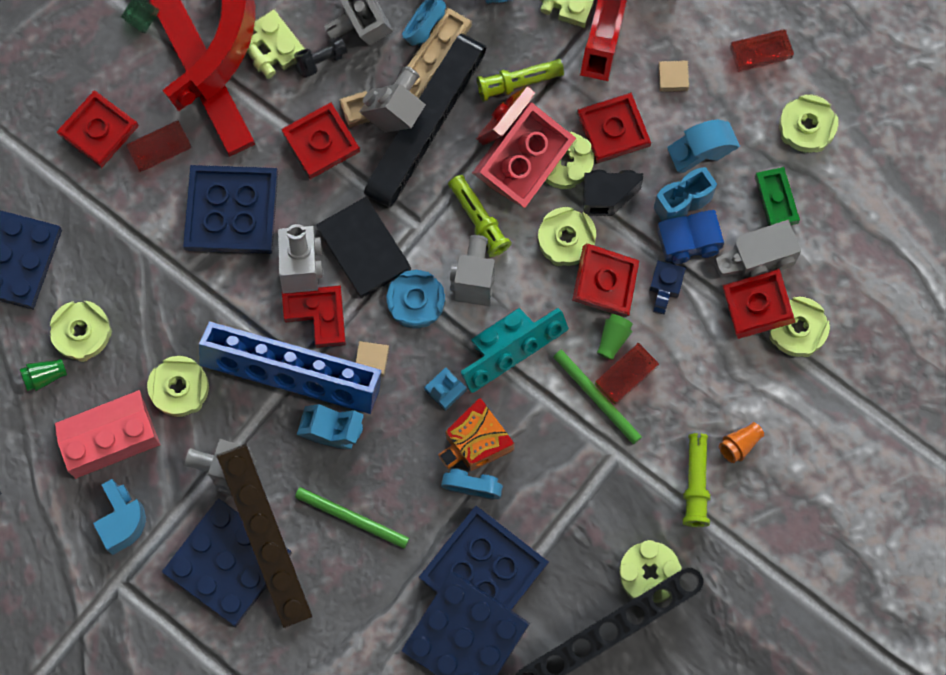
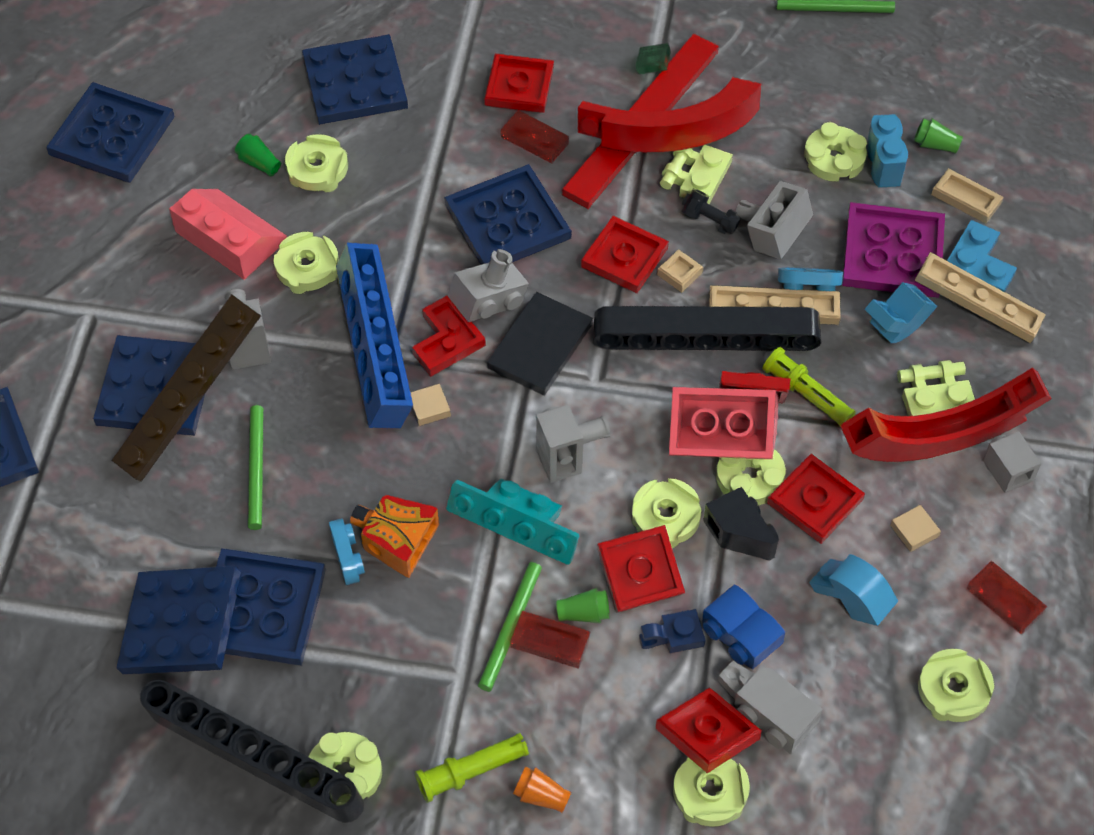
camera: 60 degrees right, 15 degrees down
(125, 523) = (150, 283): dark azure brick -> none
(330, 427) = (335, 399): dark azure brick -> none
(394, 105) = (696, 283): light grey brick -> none
(415, 299) = (512, 411): dark azure tile -> none
(445, 388) = (435, 483): dark azure tile -> none
(488, 225) = (629, 433): lime pin -> none
(688, 195) = (788, 598): dark azure brick -> none
(777, 196) = (847, 693): green plate -> none

